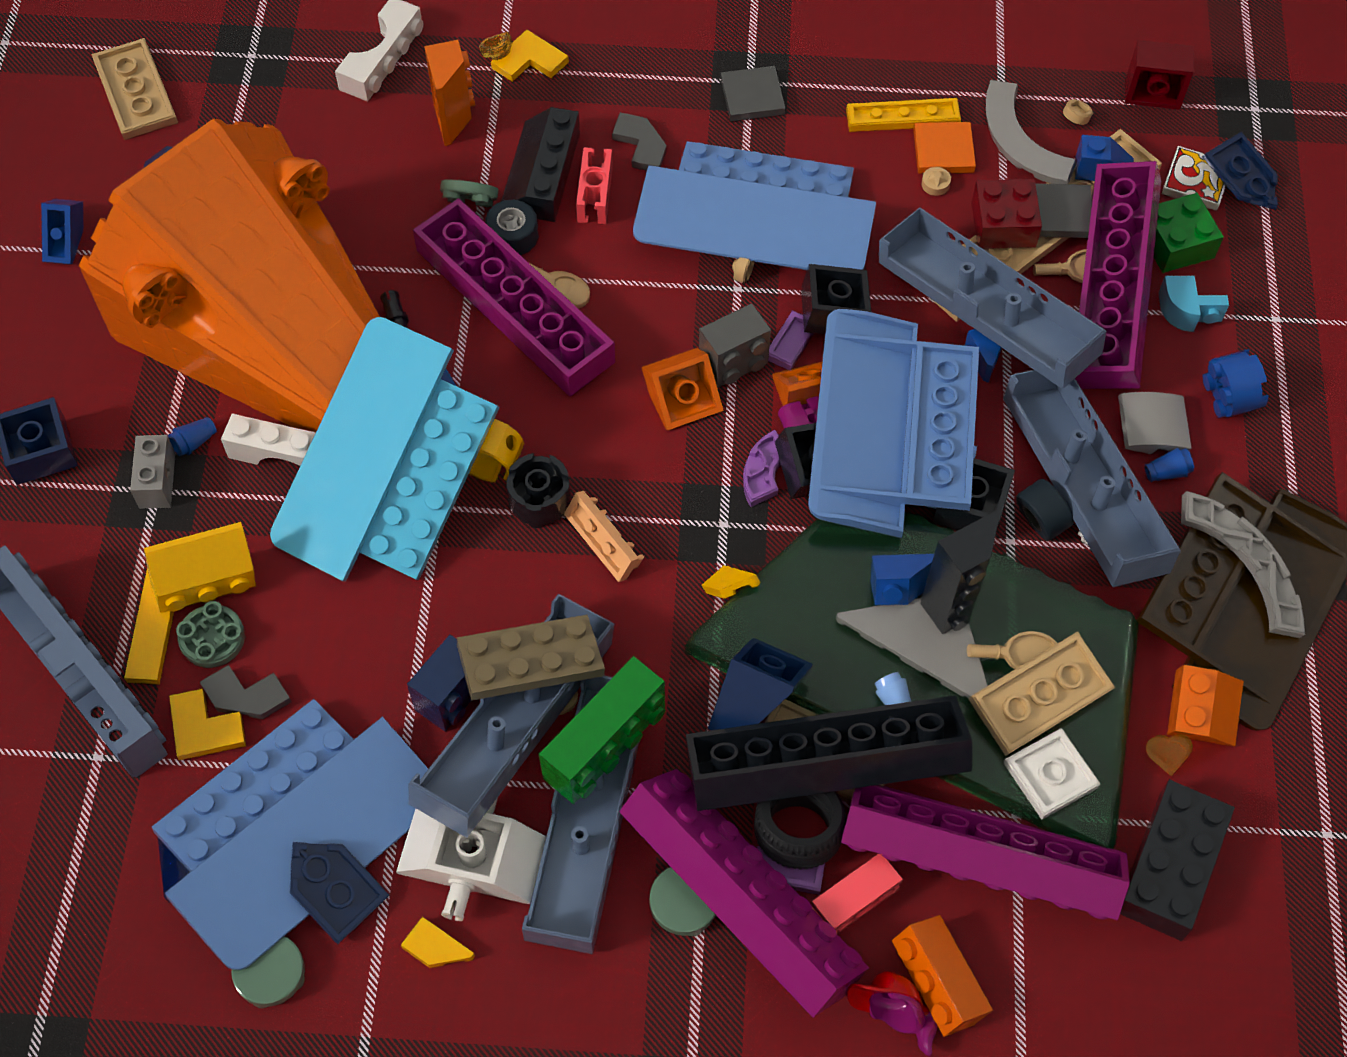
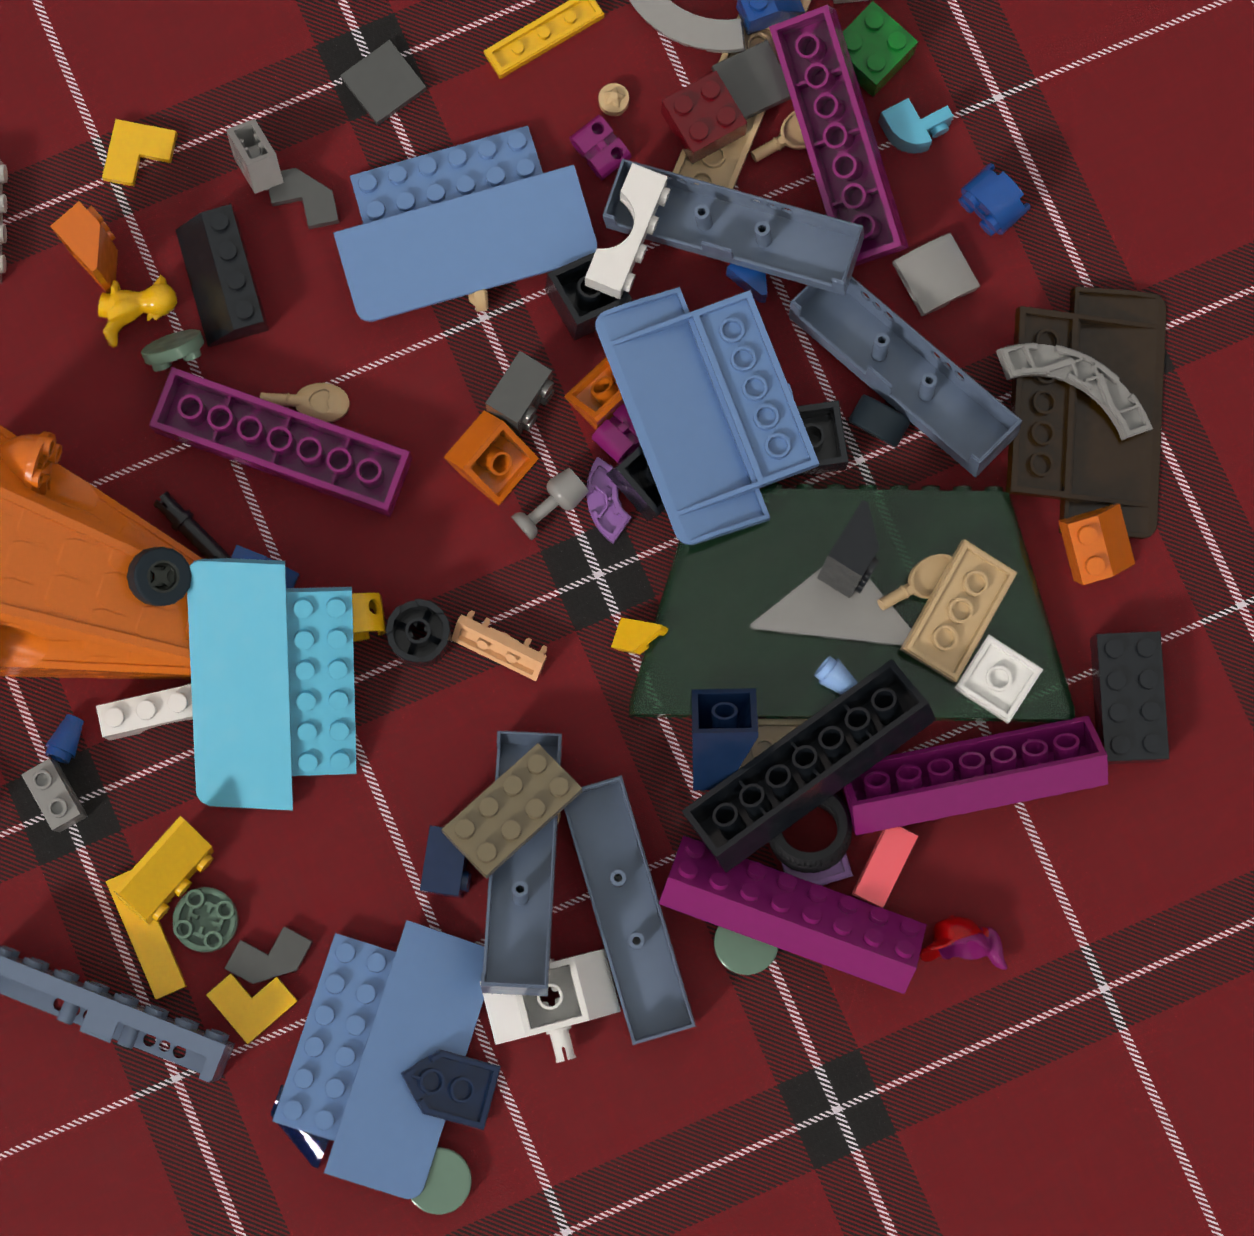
camera: 30 degrees left, 20 degrees up
(348, 307) = (170, 573): none -> black wheel
(434, 946) = (562, 1088): yellow tile -> none
(450, 151) = (126, 306): none -> yellow animal
(496, 46) = (97, 156): clear yellow tile -> none
(515, 224) = (228, 355): black wheel -> none
(594, 185) = (278, 267): coral piece -> none
(603, 731) = (614, 846): green brick -> none
(618, 90) = (254, 156): none -> light grey brick
(731, 441) = (564, 490): none -> light grey piece
(789, 342) = (563, 353): medium lavender tile -> none
(868, 277) = (613, 266): none -> white arch
(899, 577) = (790, 564): blue slope -> none
(902, 201) = (600, 147): none -> magenta piece
(942, 975) = (986, 899): orange brick -> none
(944, 146) = (602, 54): orange tile -> none
(1169, 752) = (1083, 600): clear yellow tile -> none
(1170, 466) = (969, 313): blue cone -> none

